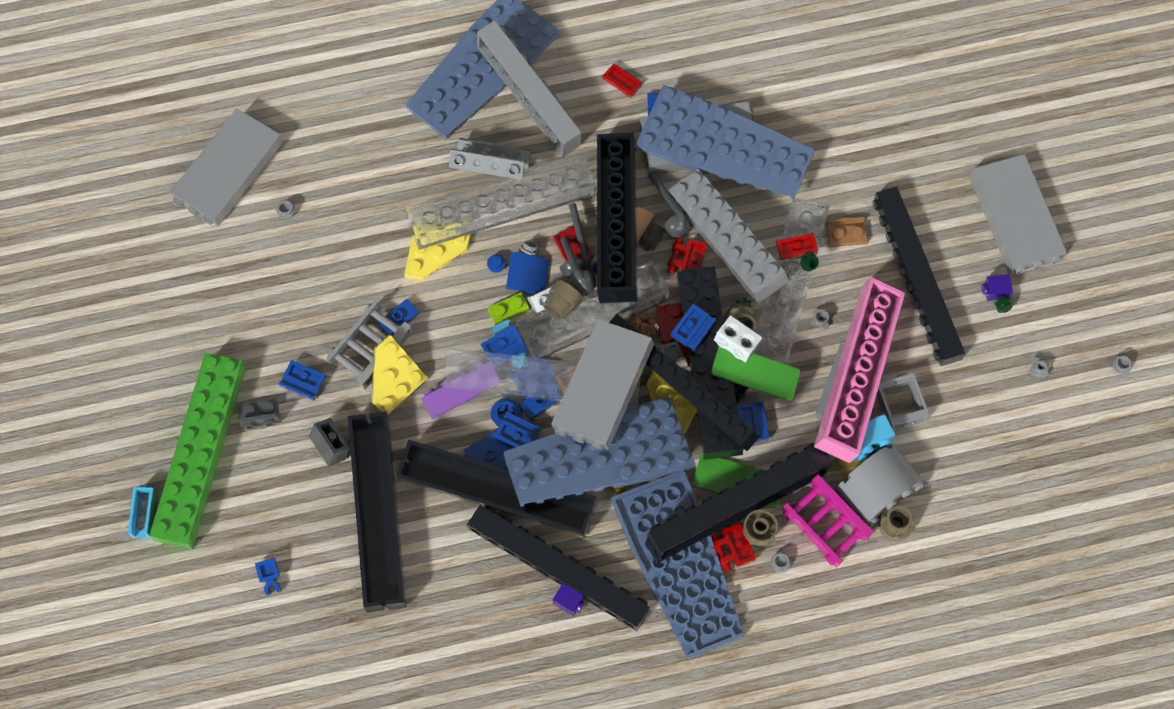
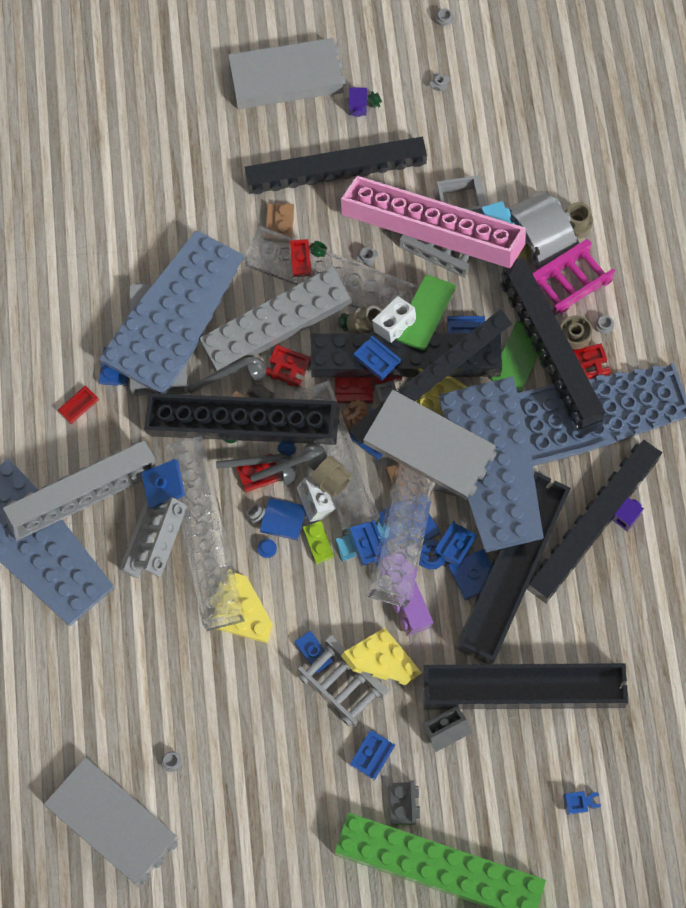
camera: 85 degrees left, 0 degrees up
(542, 157) = (162, 483): none -> blue plate

